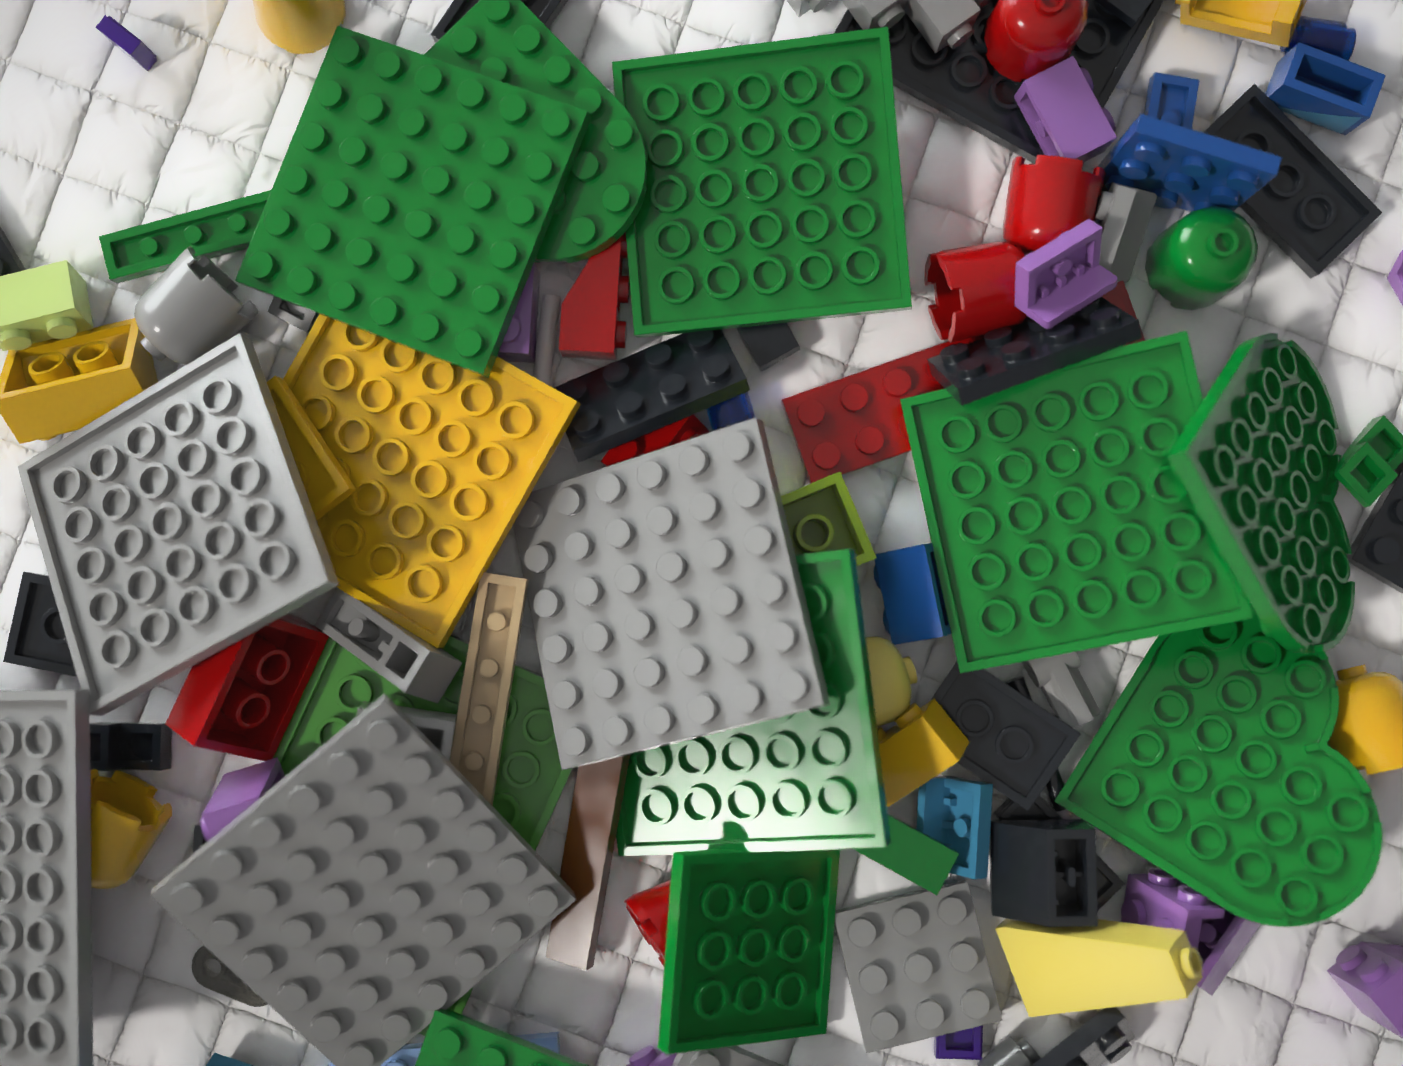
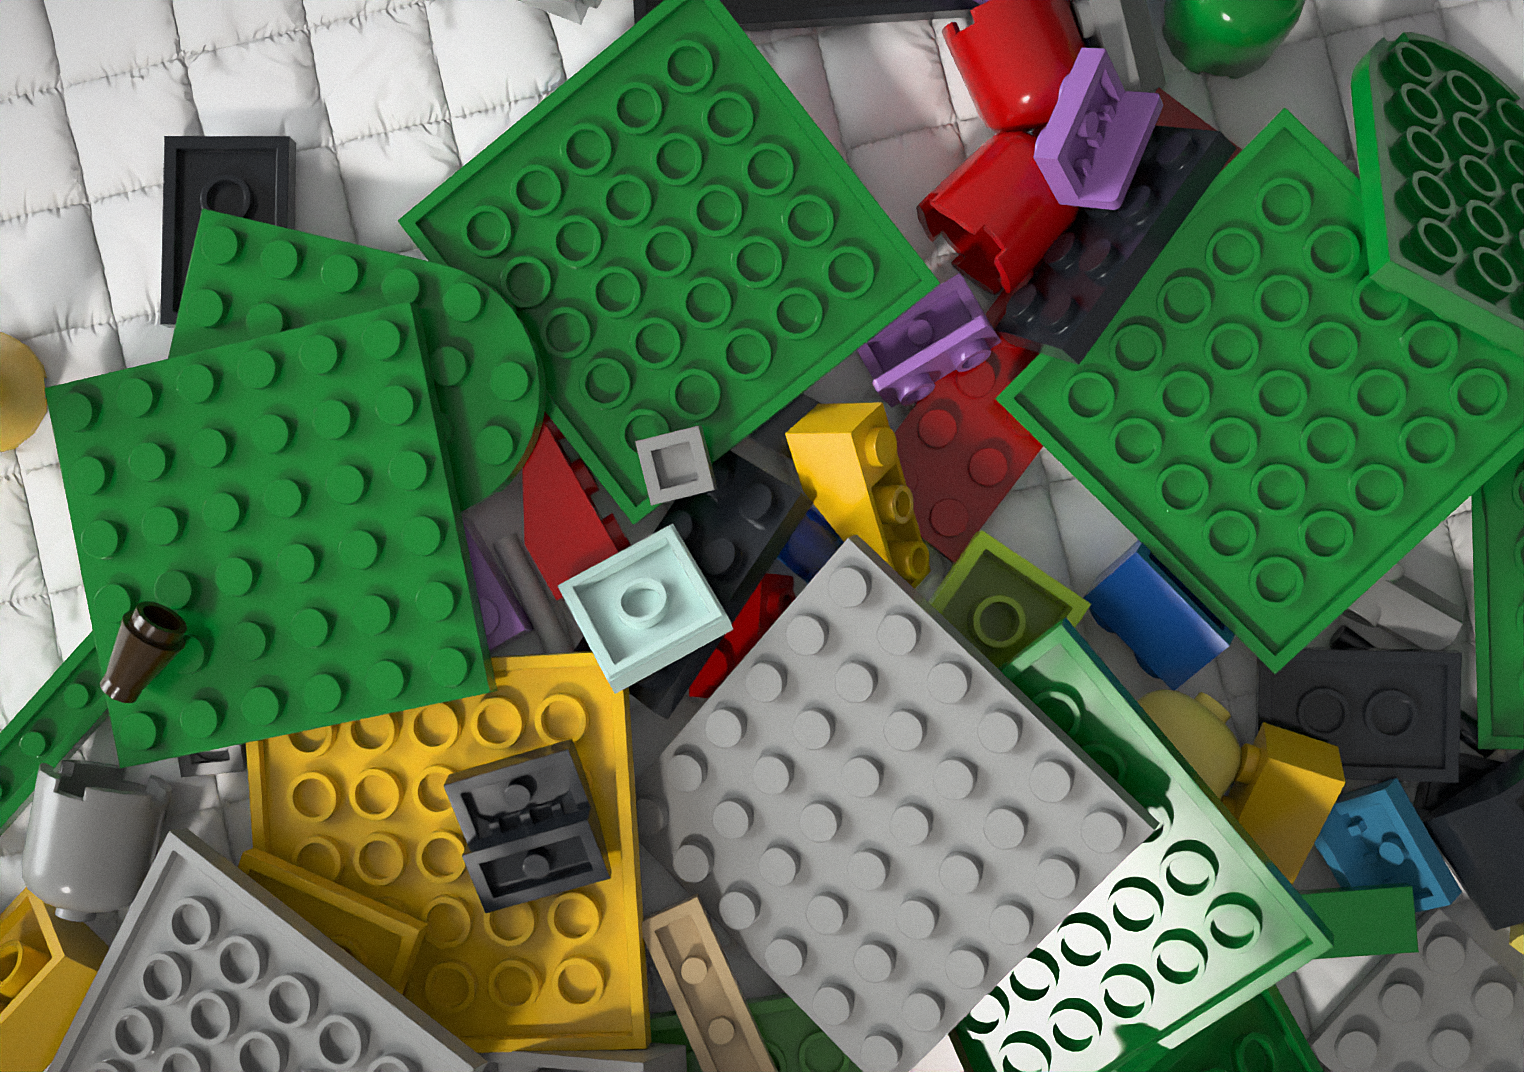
camera: 25 degrees left, 0 degrees up
(295, 214) = (142, 649): none -> dark brown cone
(454, 469) = (528, 826): none -> black slope
(607, 385) = (644, 608): none -> light aqua tile
(682, 313) = (676, 465): none -> light grey plate
(785, 395) = (857, 482): none -> yellow slope
(882, 342) = (929, 342): none -> medium lavender bracket

